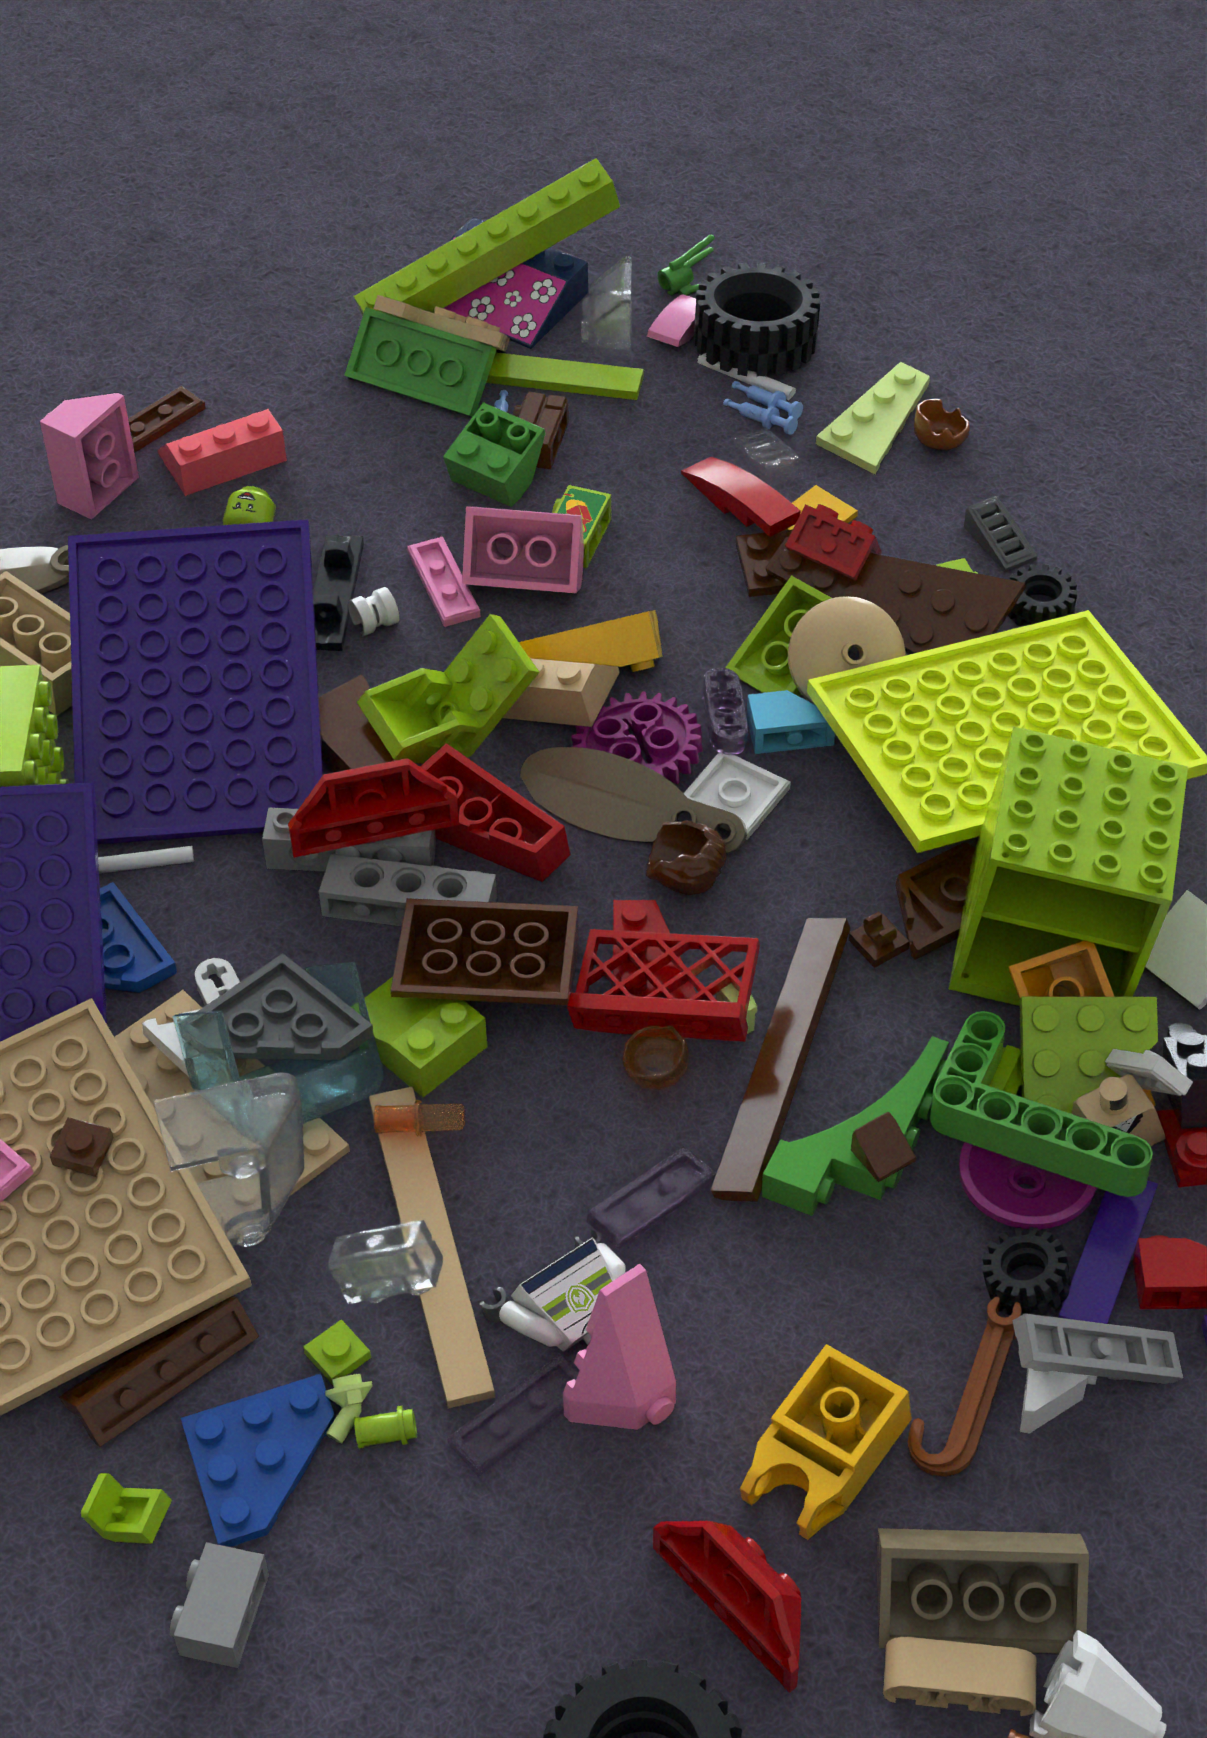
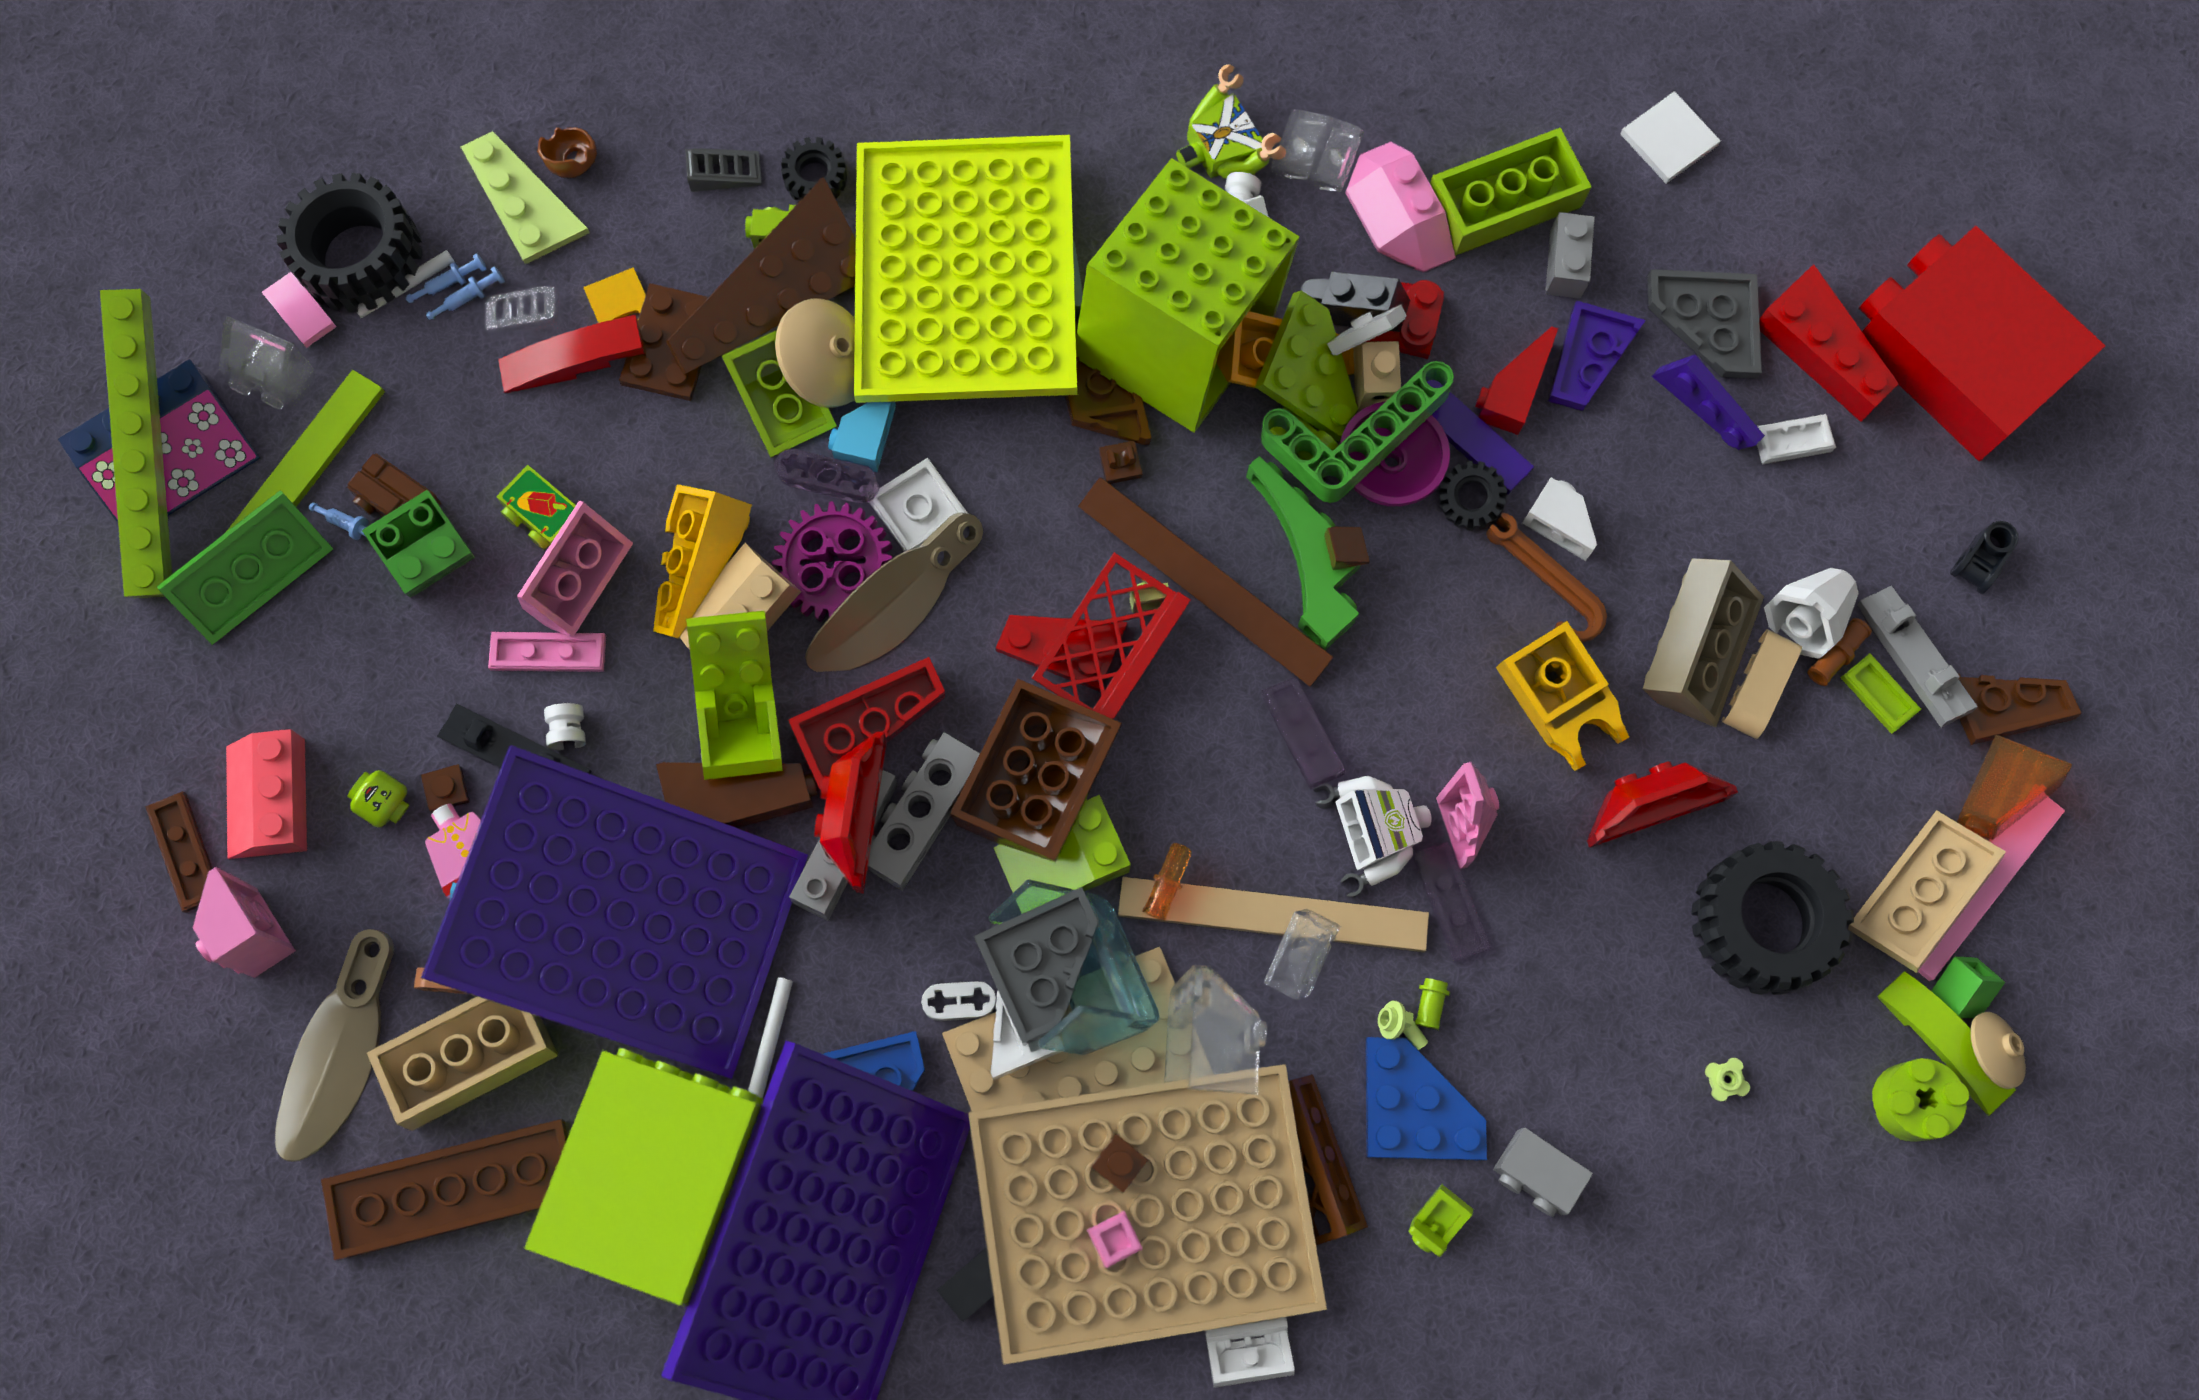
camera: 75 degrees left, 25 degrees up
(337, 1351) = (1348, 1018): lime plate -> none
(446, 321) = (211, 517): tan wing -> none
(659, 1049) = (1167, 667): clear orange hair -> none
(679, 274) = (233, 284): bright green plant -> none
(686, 857) = (985, 573): reddish brown hair -> none
(831, 541) = (701, 304): red bracket -> none
(1097, 1349) = (1570, 479): light grey hinge -> none

